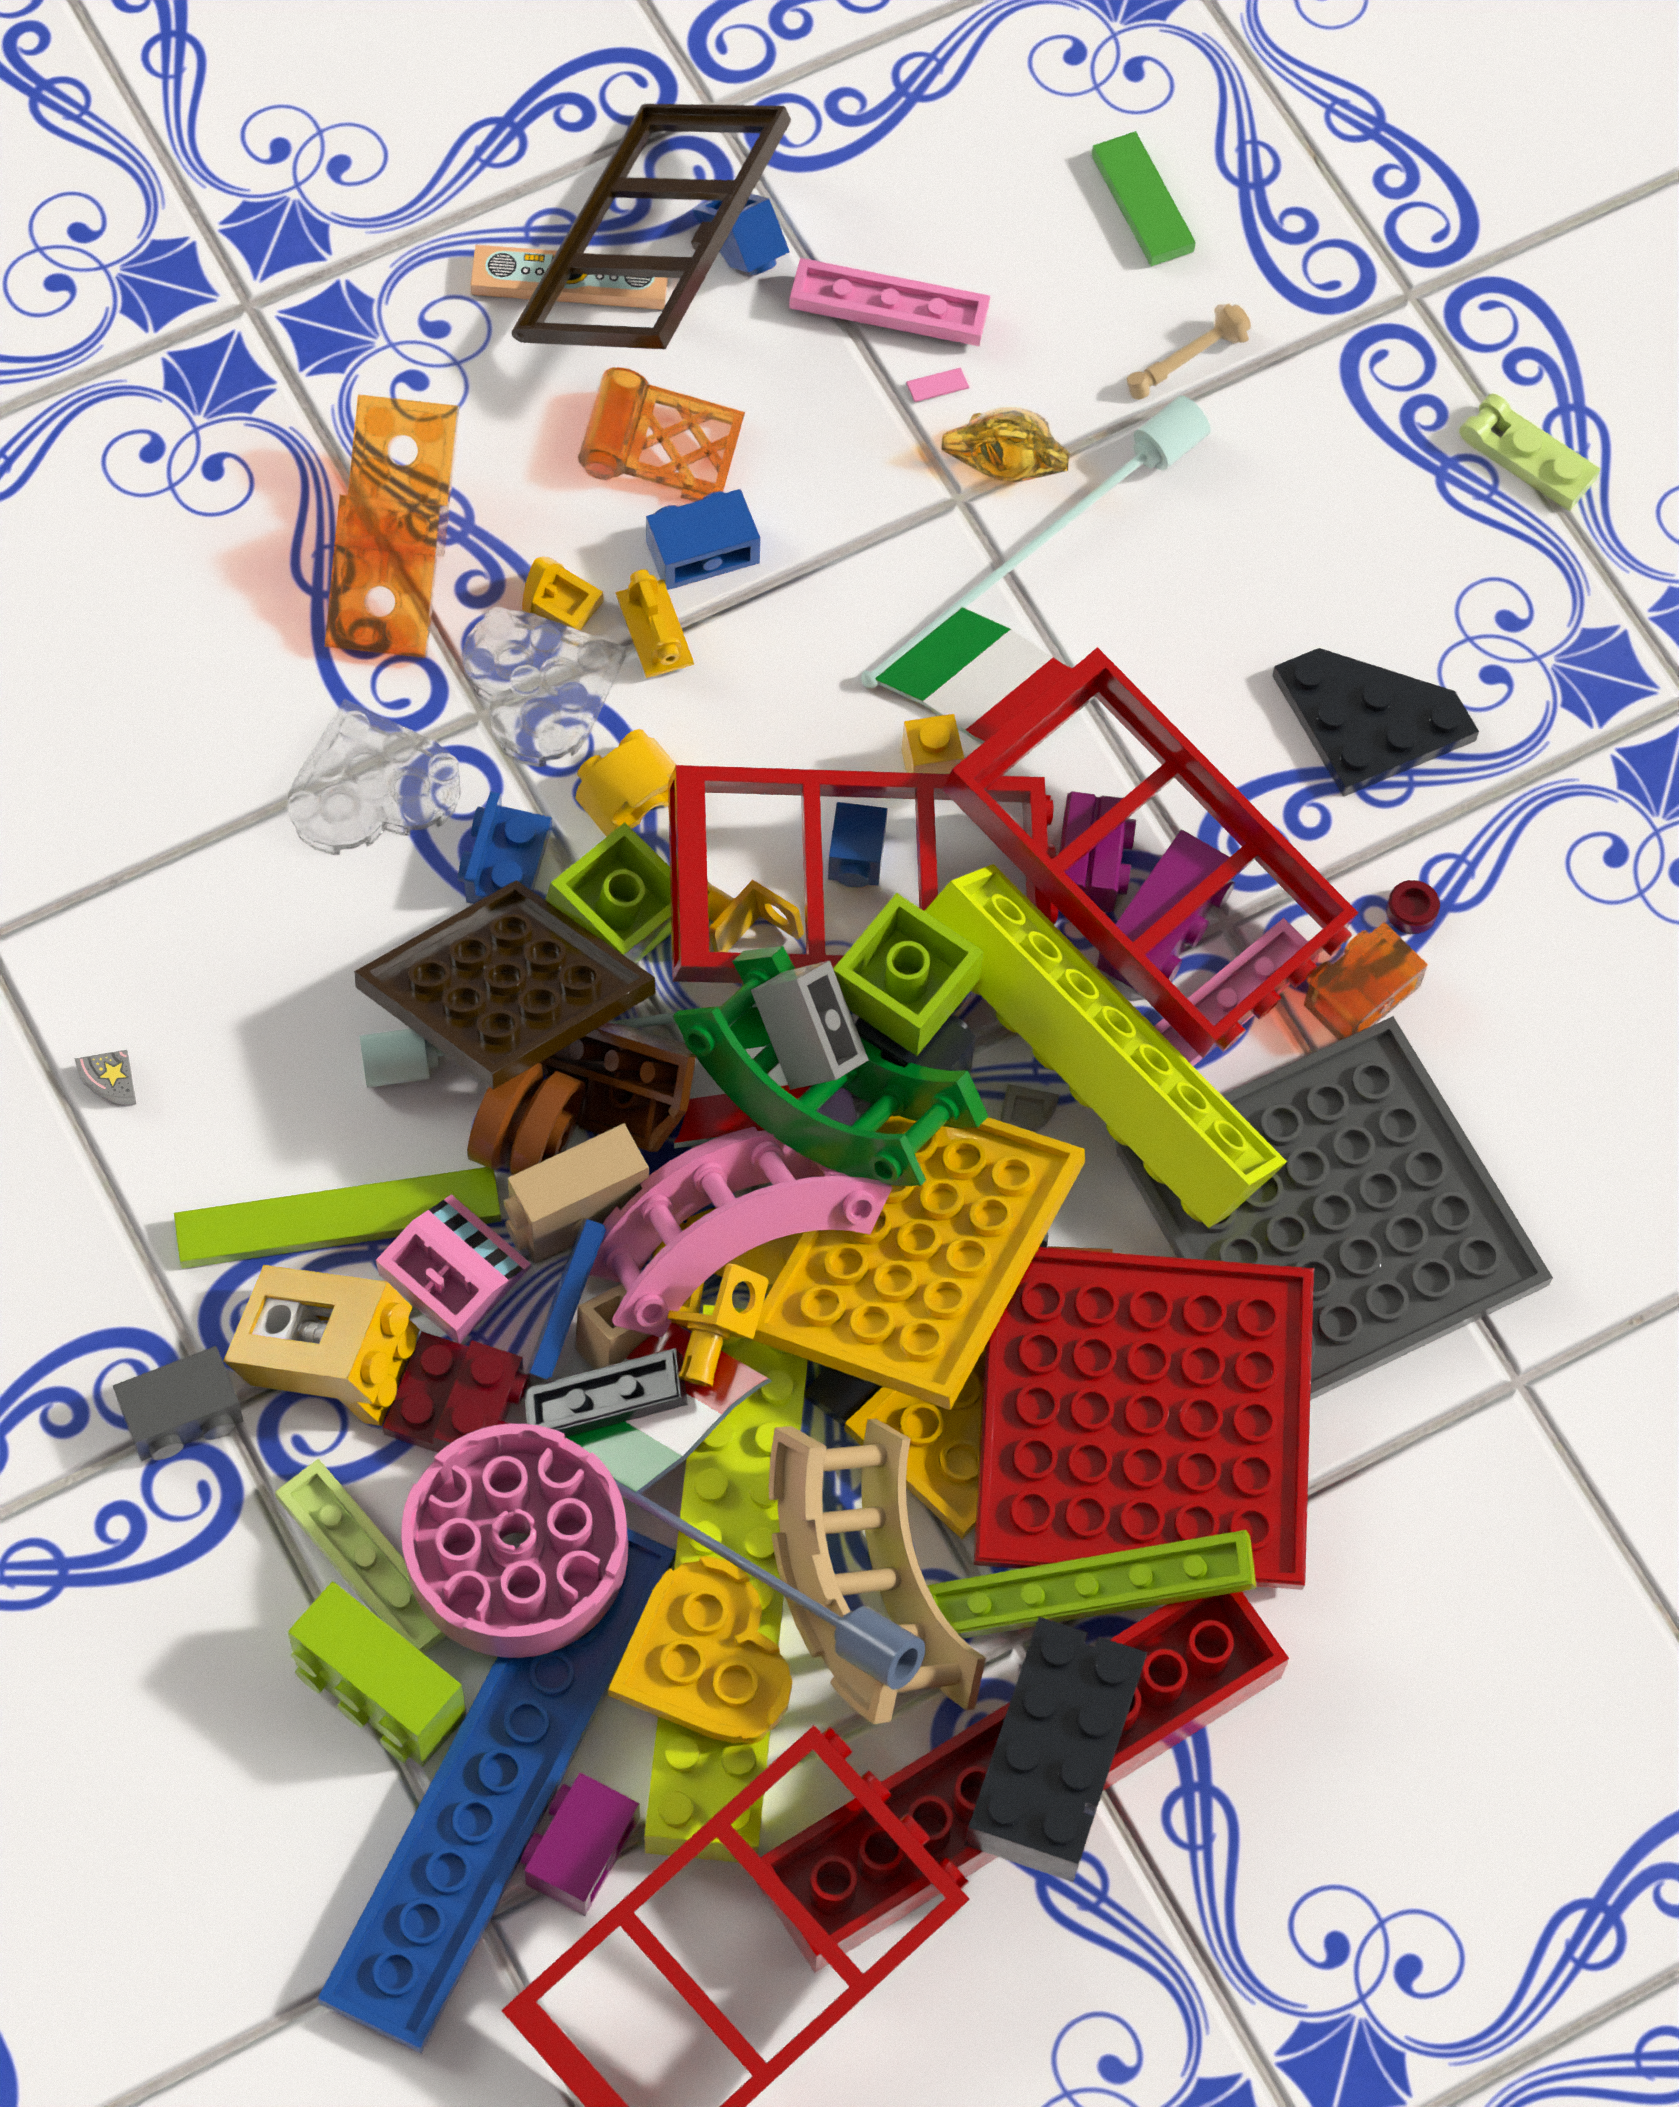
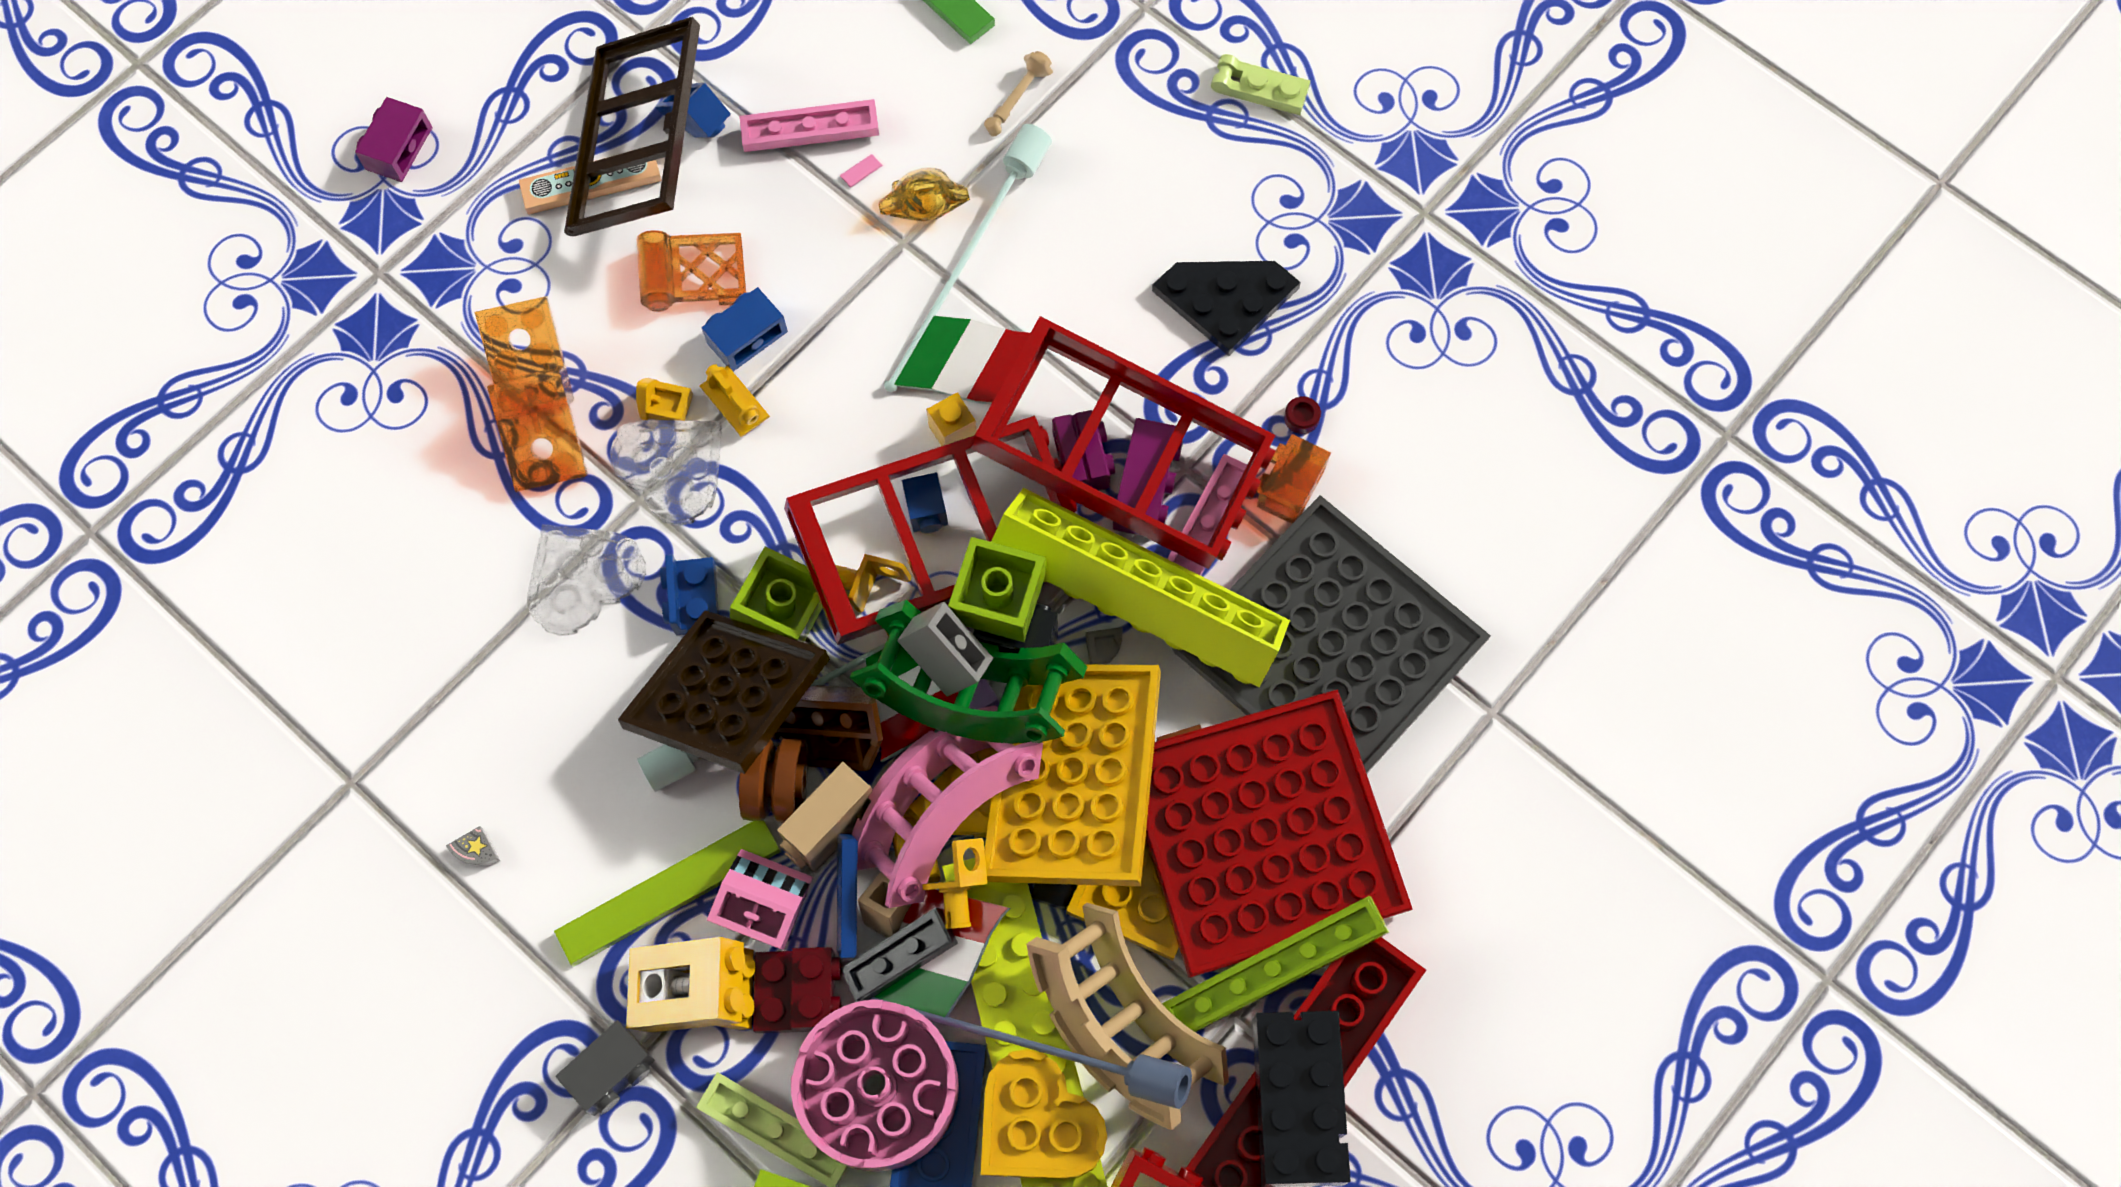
camera: 15 degrees left, 5 degrees up
(330, 137) = (393, 139): none -> magenta brick
(625, 782) = (754, 515): yellow cylinder -> none

